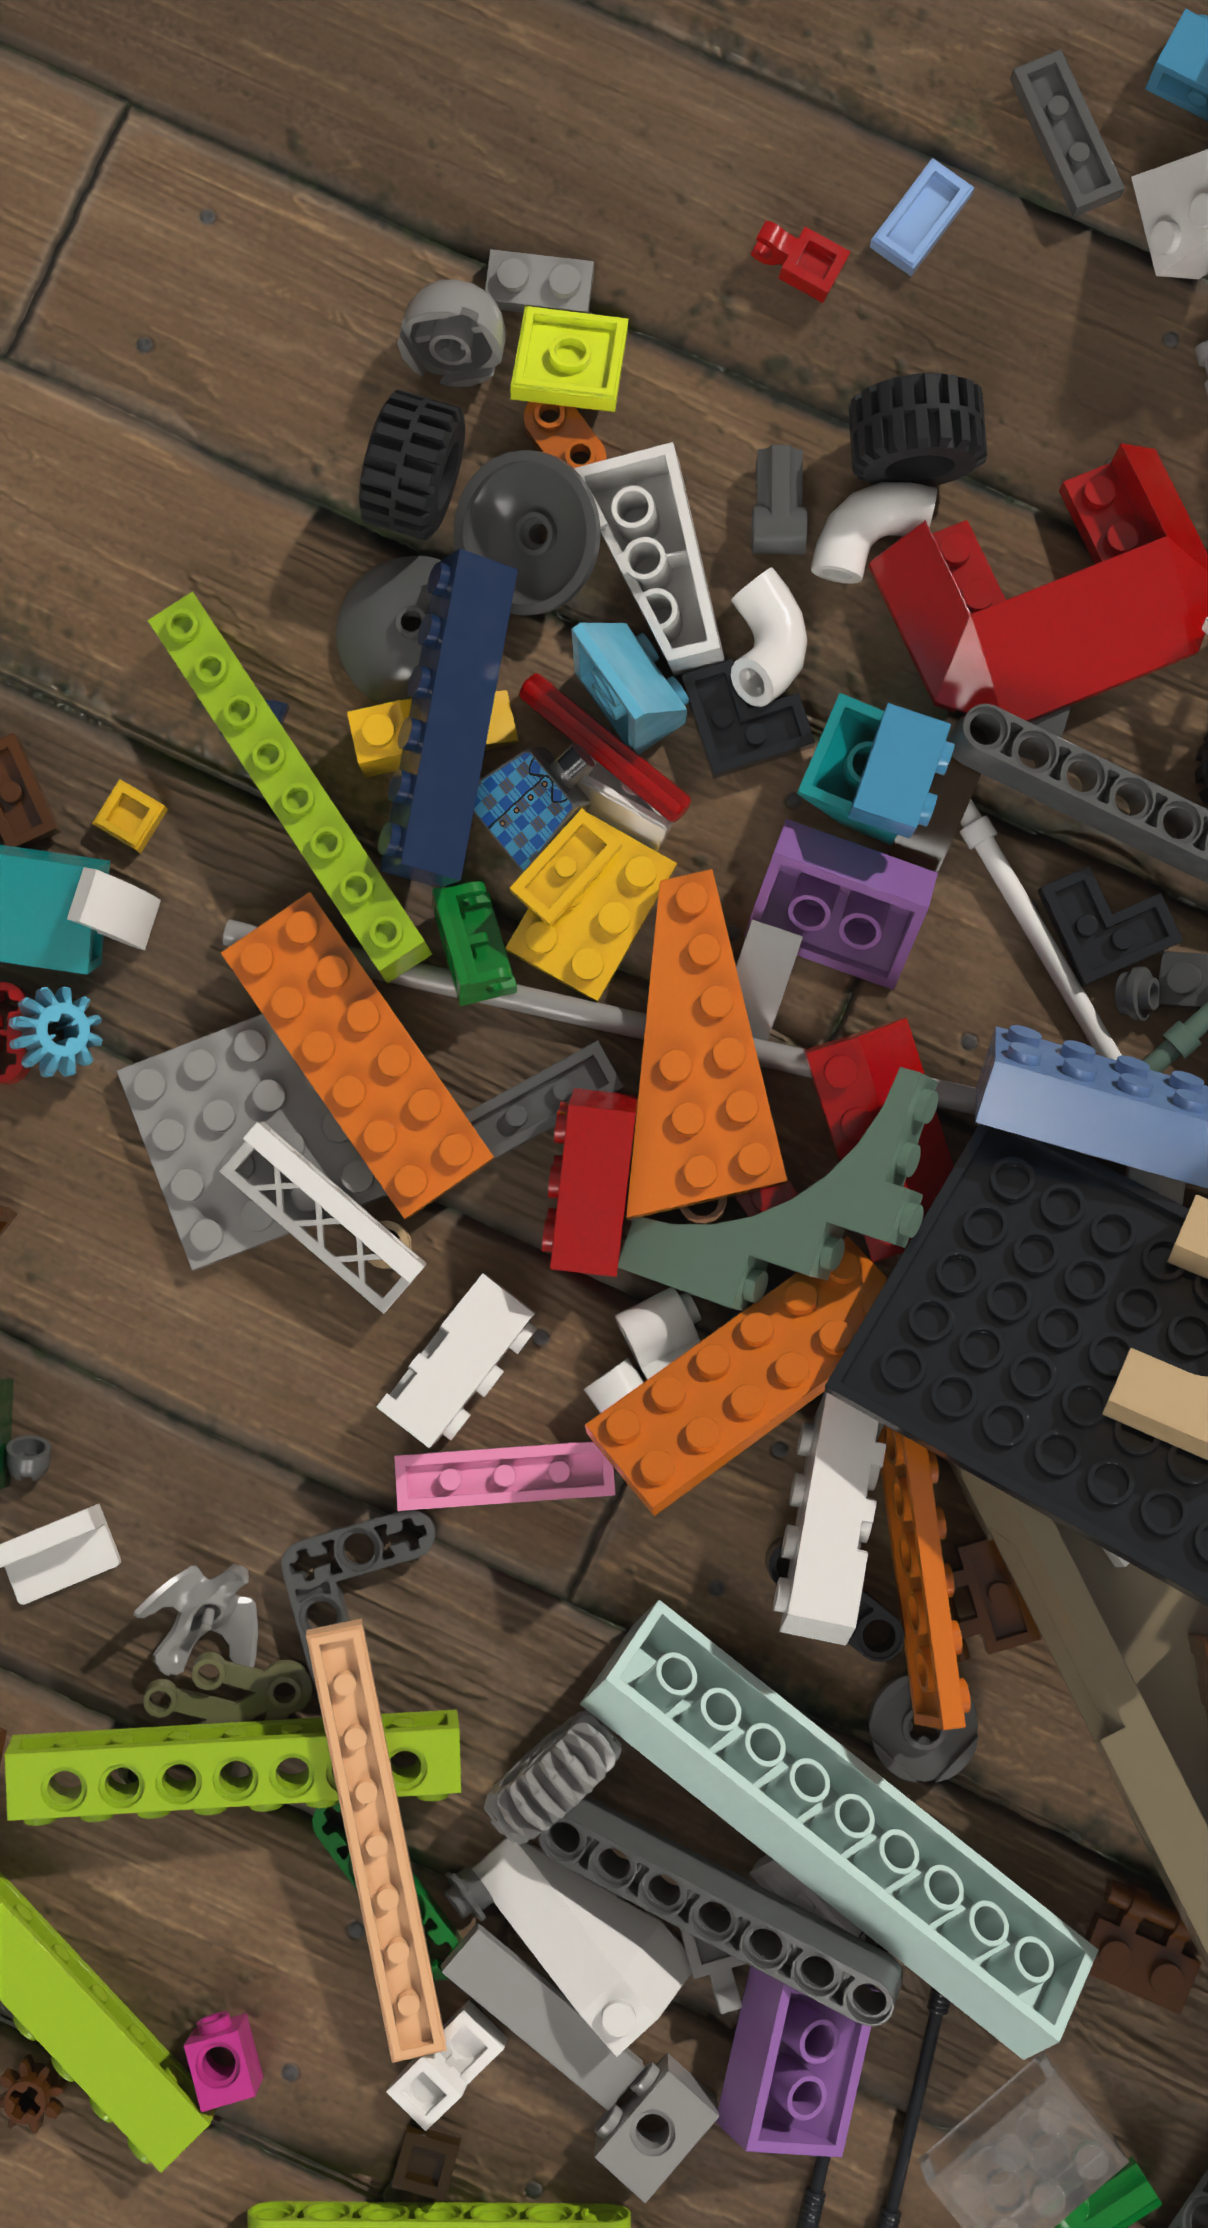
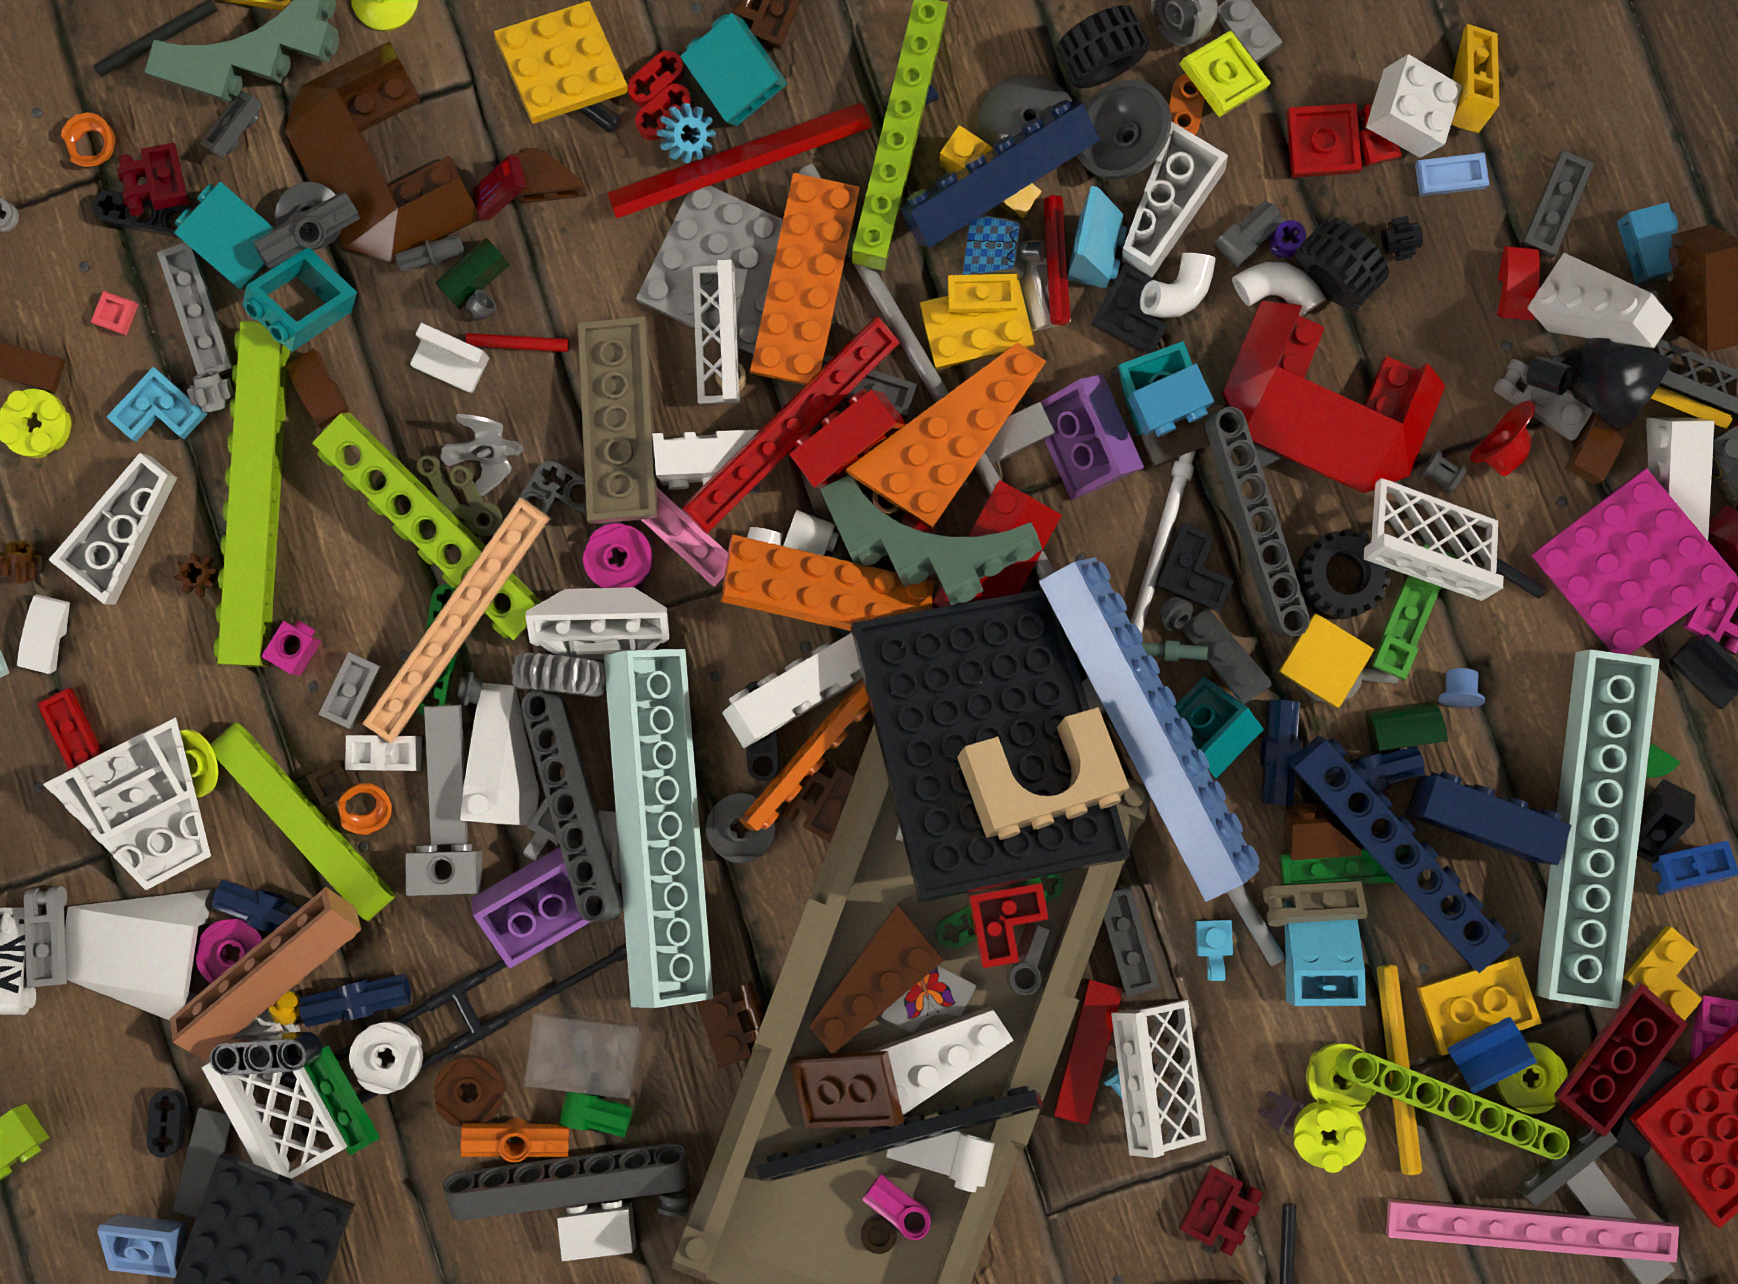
camera: 40 degrees right, 0 degrees up
(112, 1454) = (518, 342): none -> red bar
(114, 908) = (768, 105): white slope -> none
(130, 816) = (817, 74): yellow tile -> none
(144, 1000) = (739, 160): none -> red tile
(316, 1427) = (617, 420): none -> dark tan plate
(338, 2037) = (350, 690): none -> light grey plate
(472, 942) = (908, 284): green hinge -> none
(490, 1602) = (625, 539): none -> dark pink plate
(511, 2161) = (370, 822): none -> orange piece
(513, 1234) = (793, 421): none -> red tile
(532, 1672) = (597, 622): none -> white wedge
(750, 320) = (1324, 140): none -> red plate
(811, 183) = (1414, 106): none -> white brick
(840, 463) = (1284, 230): none -> dark purple bush
(844, 92) = (1479, 75): none -> yellow slope
(945, 339) = (1401, 238): none -> black gear
(1116, 251) = (1520, 281): none -> red slope

